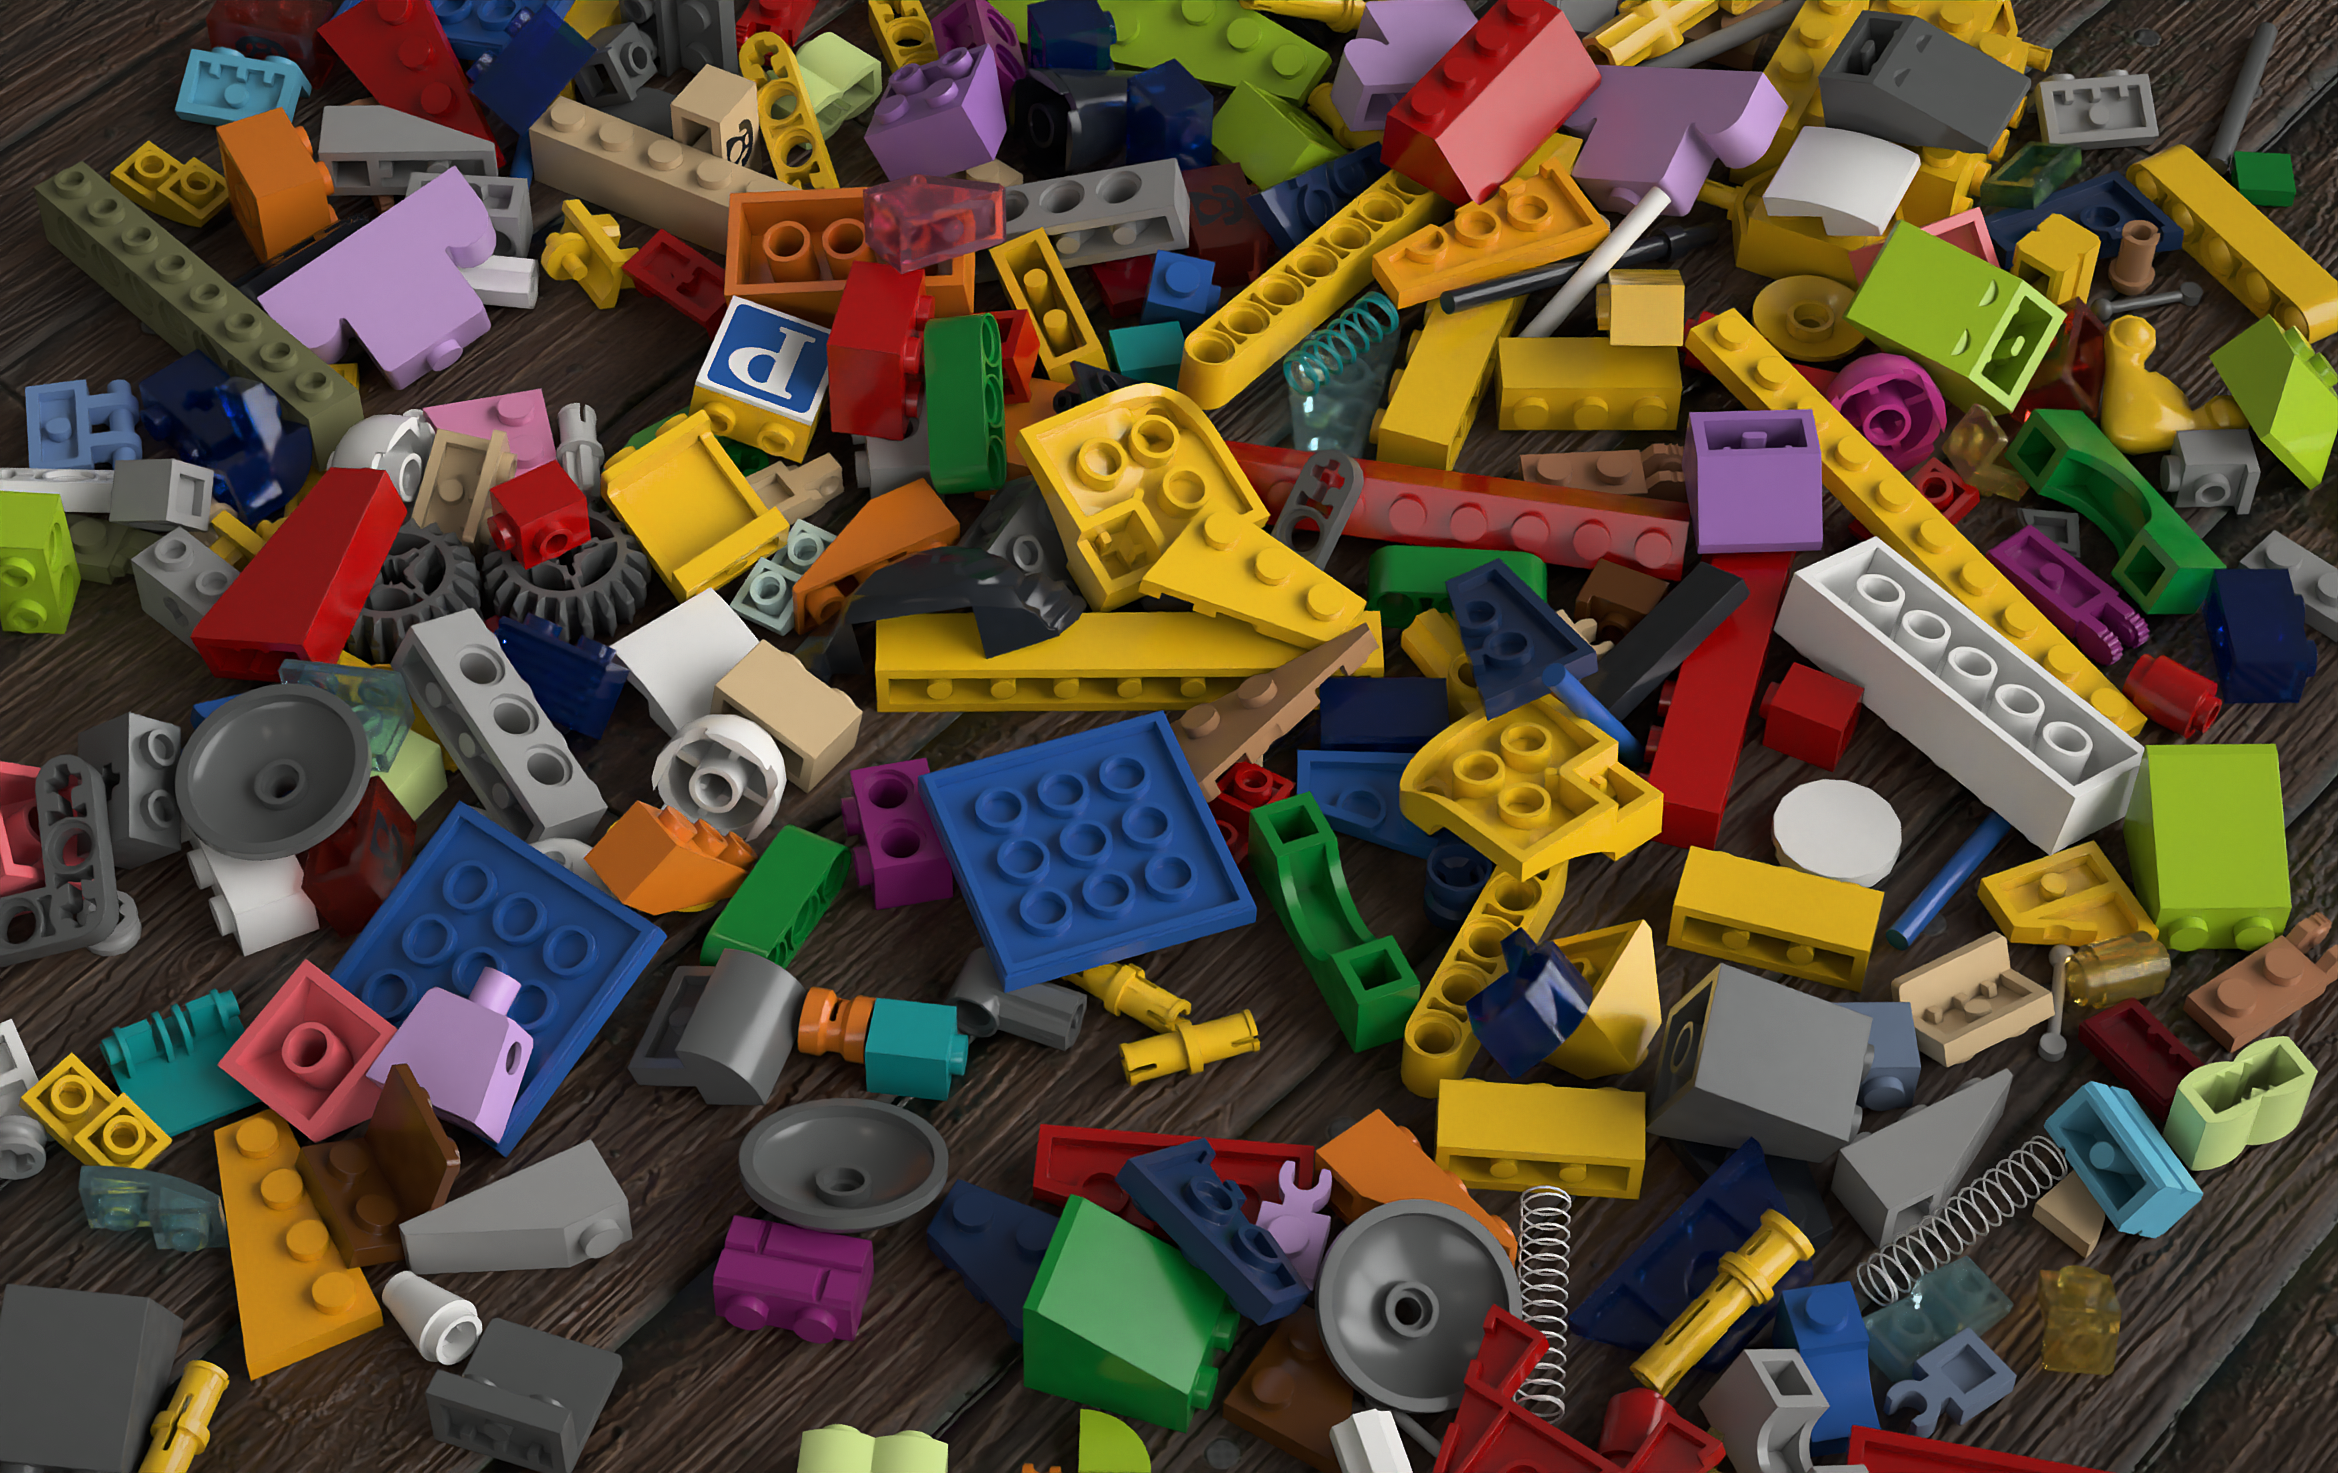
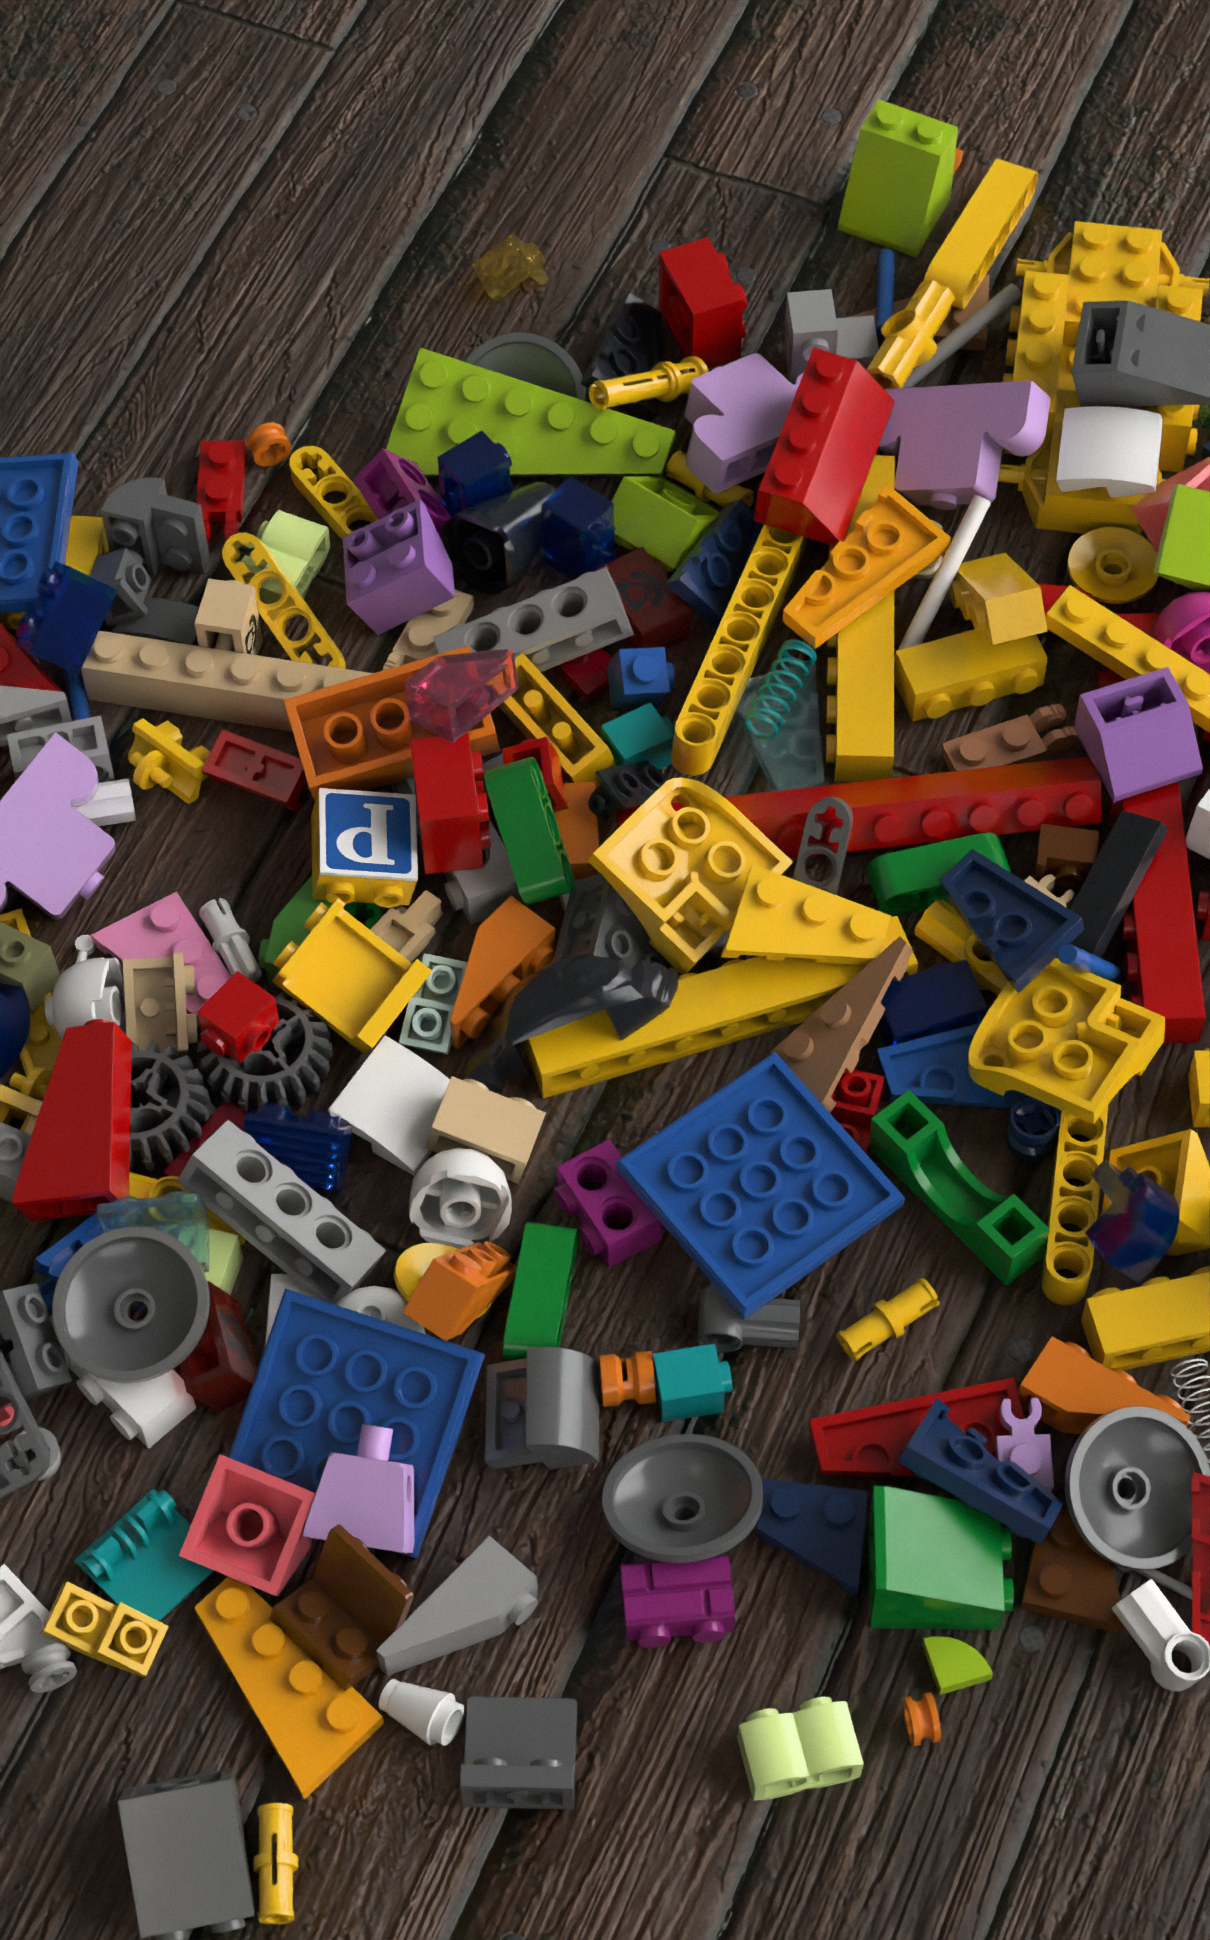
camera: 15 degrees left, 10 degrees up
(179, 1211) = (202, 1686): clear light blue slope -> none
(1128, 991) = (835, 1288): yellow pin -> none
(1662, 245) = (919, 582): black bar -> none

